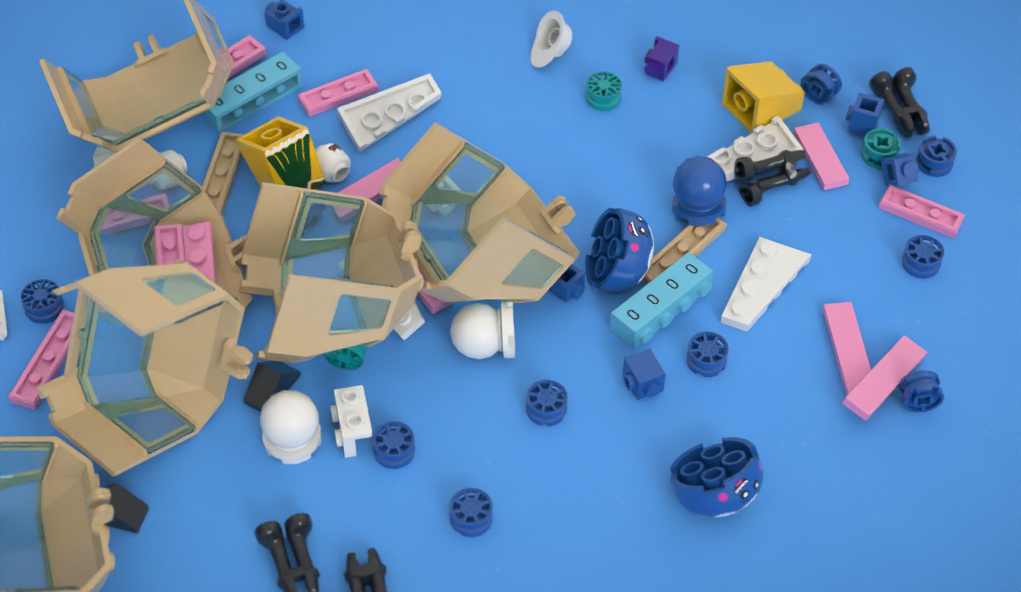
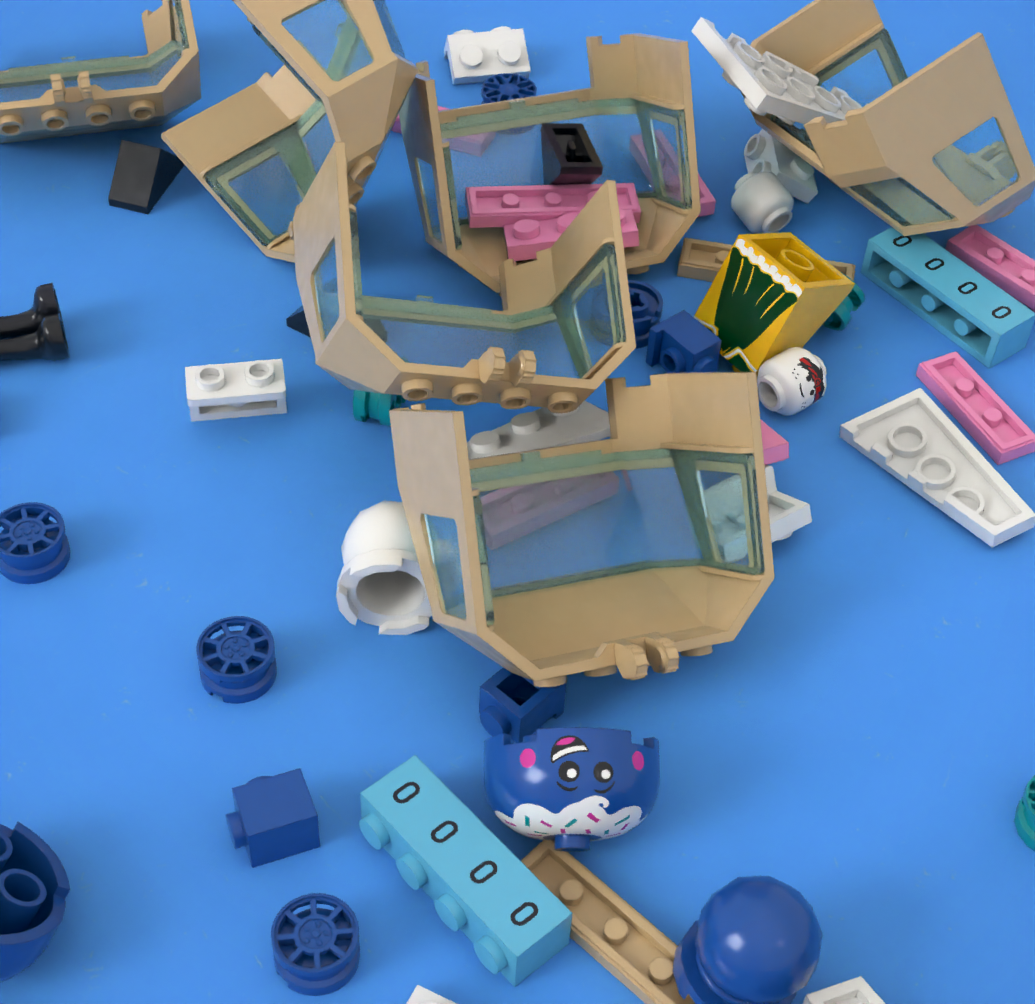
camera: 90 degrees right, 5 degrees down
(122, 116) = (772, 82): none -> white wing
(142, 249) = (568, 155): none -> black slope
(290, 426) = (233, 316): white tile -> none
(394, 446) = (186, 452): blue wheel -> none

